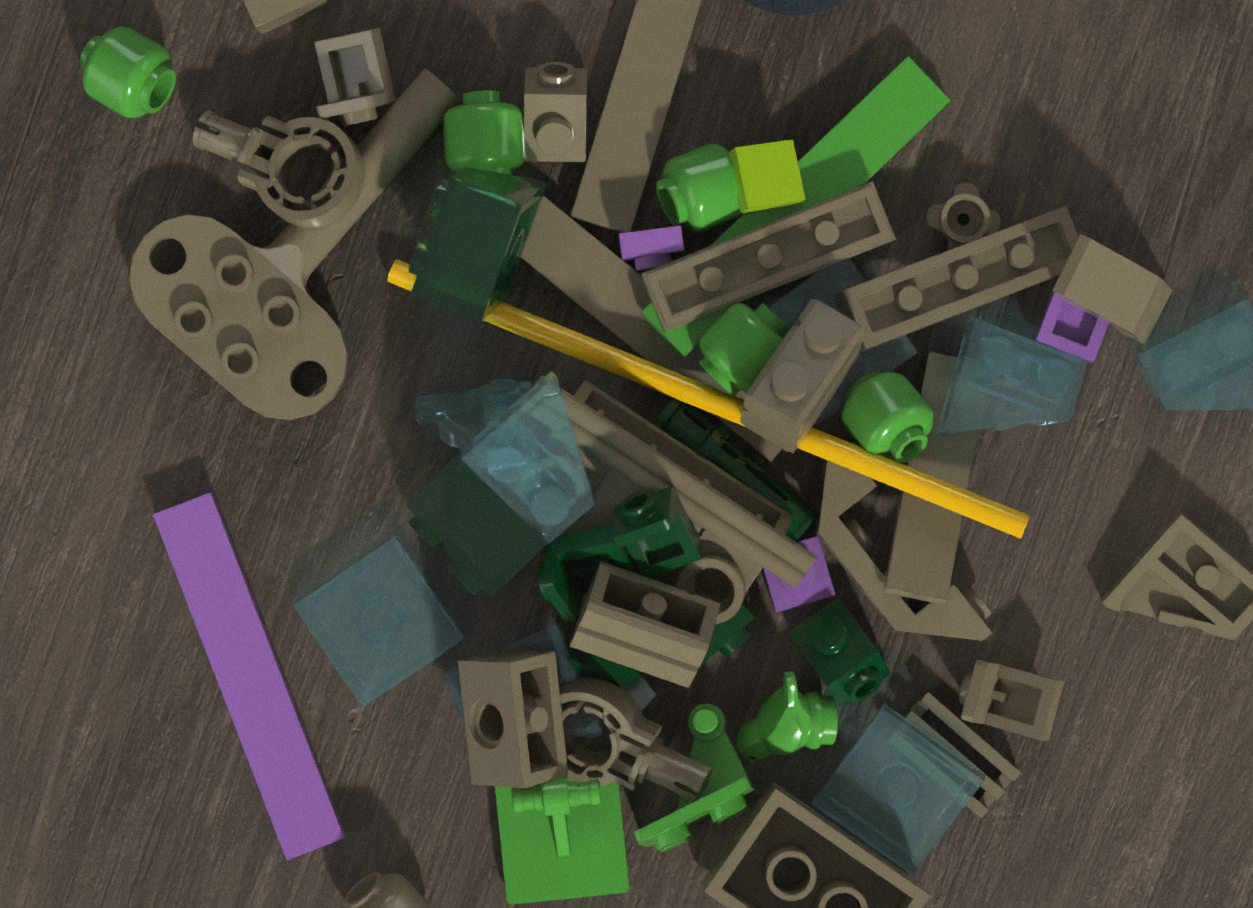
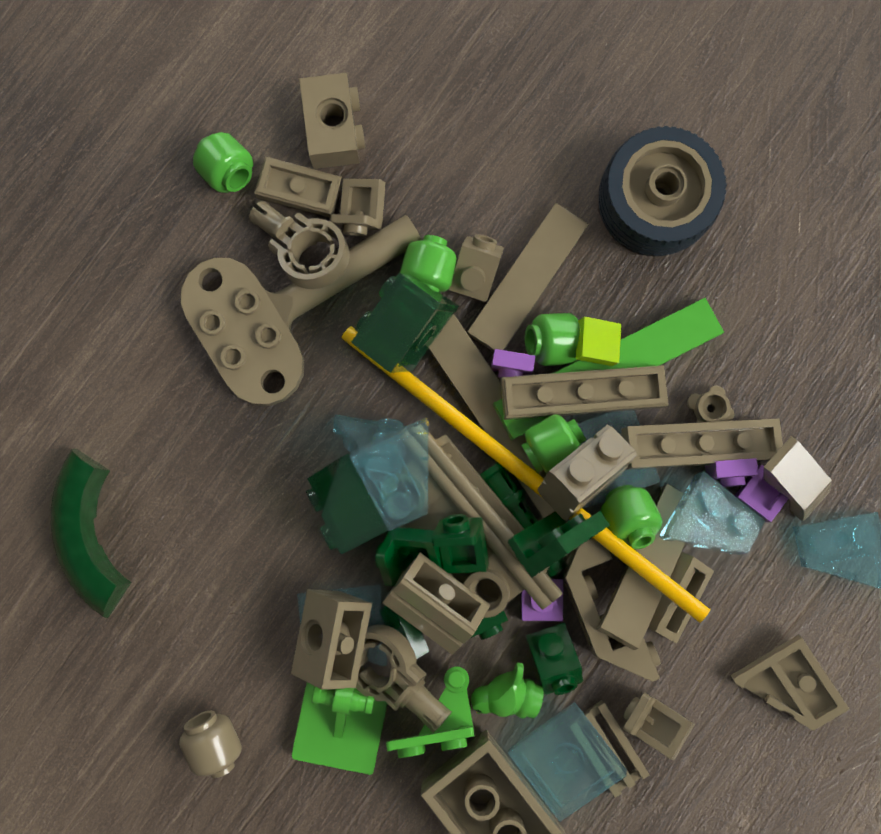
camera: 15 degrees right, 5 degrees down
(95, 690) = (75, 537): none -> dark green brick
(249, 675) = (175, 559): medium lavender tile -> none
(251, 73) = (298, 187): none -> dark tan plate
(379, 621) = (268, 548): clear light blue tile -> none
(782, 486) = (553, 539): none -> dark green bracket
(1004, 479) = (669, 618): none -> dark tan tile
(1018, 306) = (732, 472): none -> medium lavender plate

